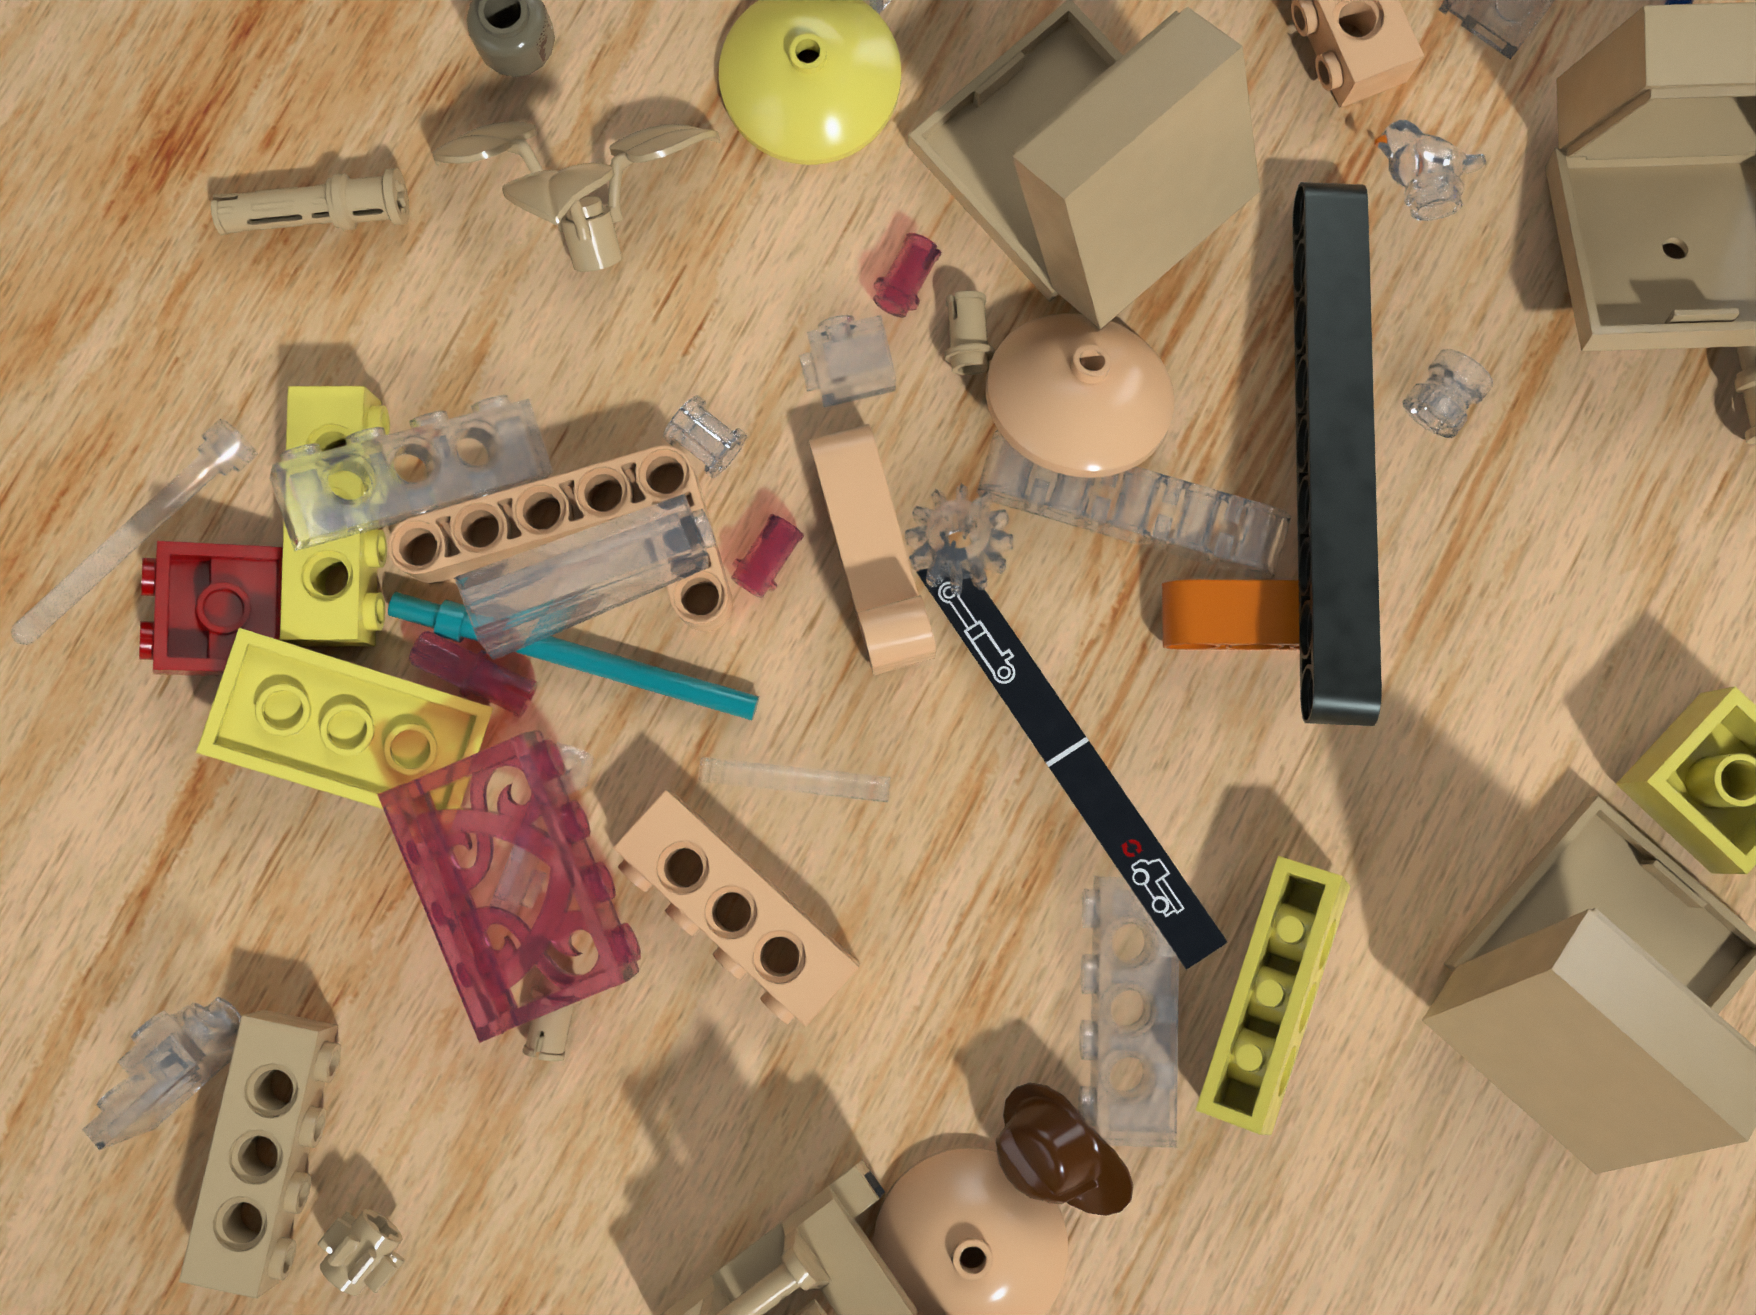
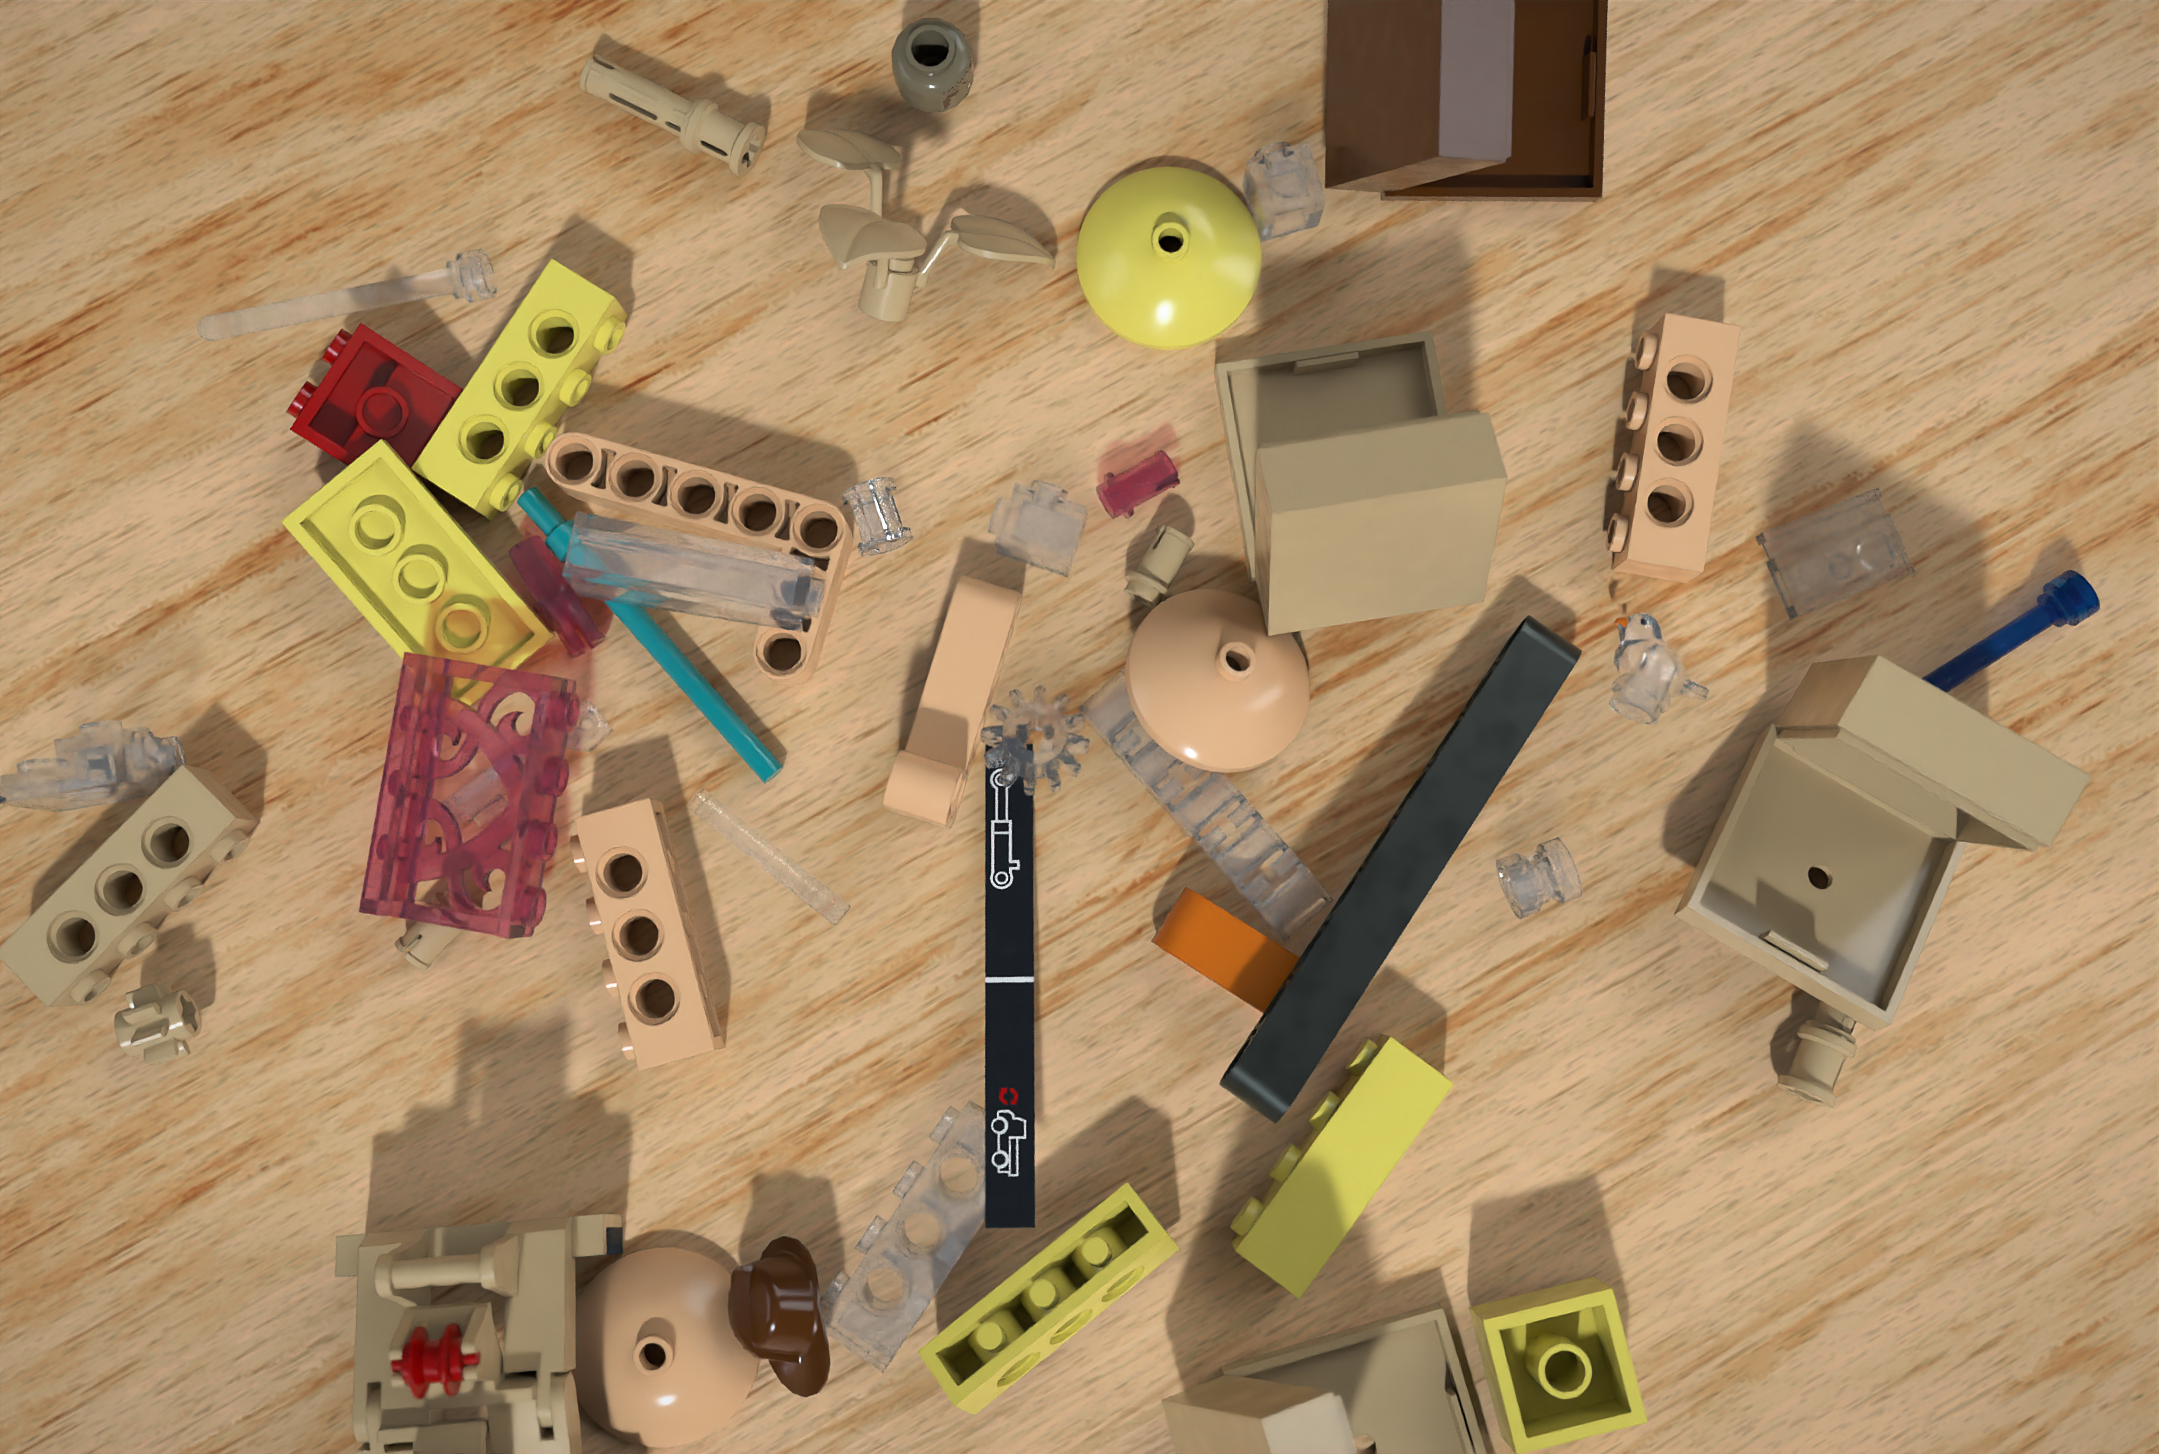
camera: 30 degrees right, 0 degrees up
(319, 516) = (502, 386): clear brick -> none
(766, 556) = (864, 651): clear pink pin -> none
(1437, 730) = (1339, 1164): none -> light yellow brick

